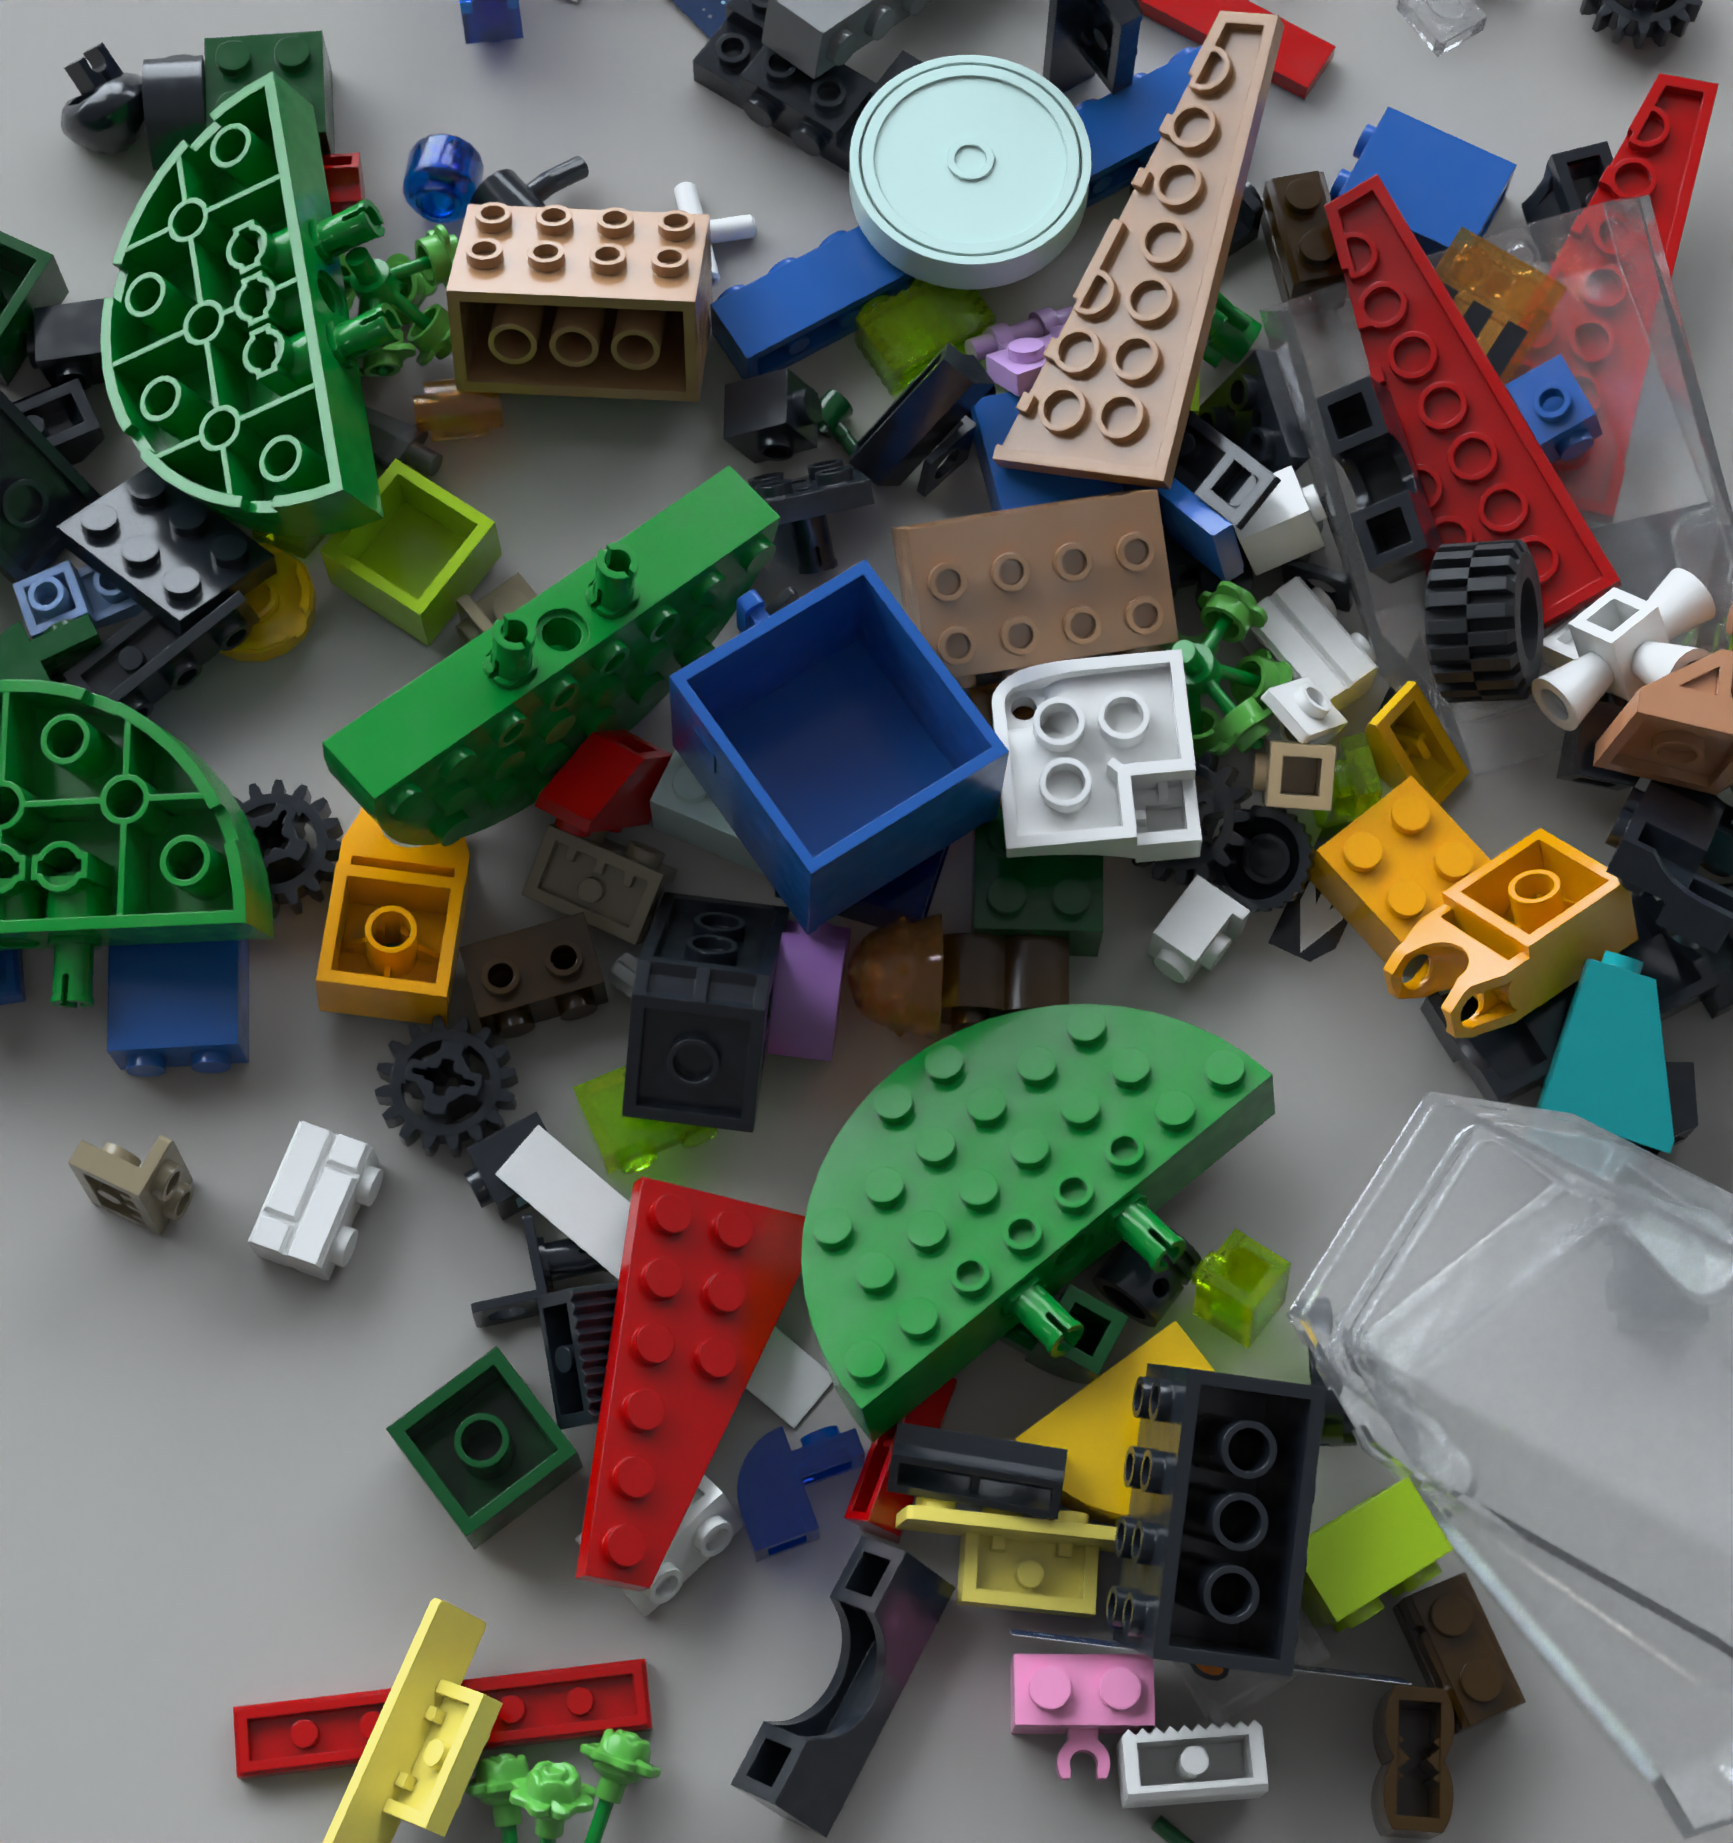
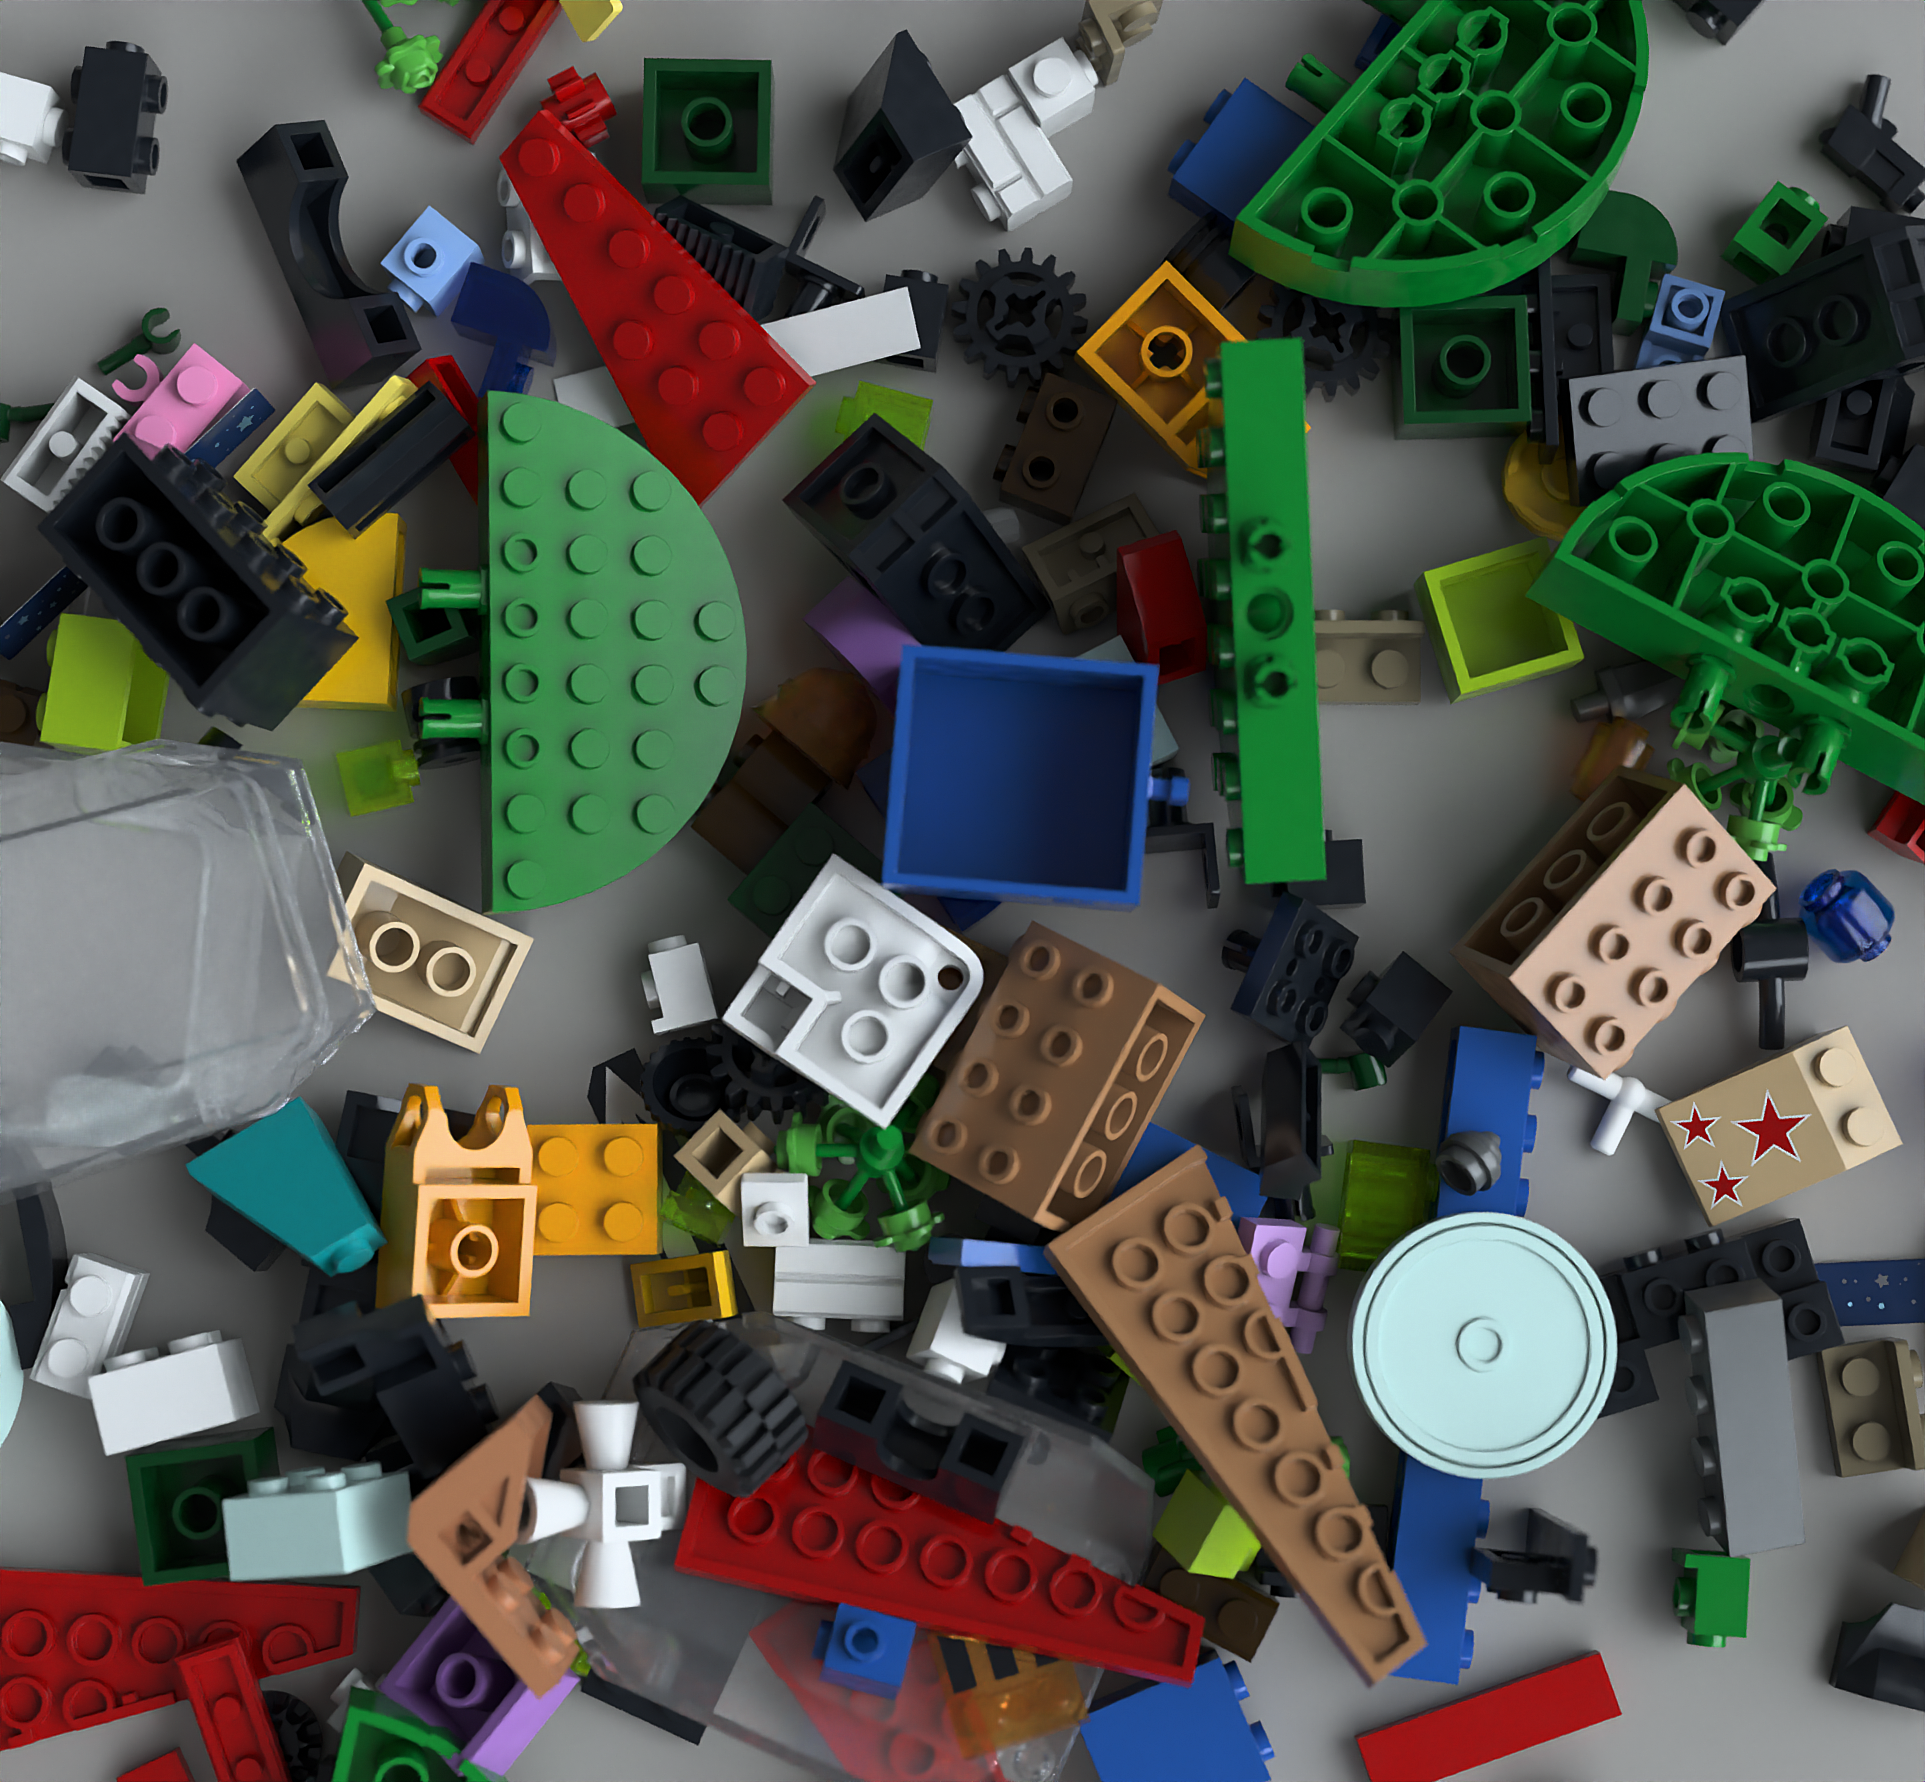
camera: 125 degrees right, 15 degrees up
(225, 1200) = (1055, 86): none -> white brick
(232, 713) = (1461, 369): none -> dark green brick
(284, 971) = (1205, 263): none -> black piece
(366, 1290) = (897, 132): none -> black slope
(546, 1581) = (580, 105): none -> red gear
(635, 114) = (1778, 1126): none -> tan slope
(780, 1597) = (430, 263): none -> light blue brick
(842, 273) = (1470, 1161): none -> dark grey plate
(1049, 1800) = (143, 342): none -> dark green hand
(1262, 262) = (1205, 1529): none -> lime brick
(1331, 1137) = (430, 954): none -> tan slope

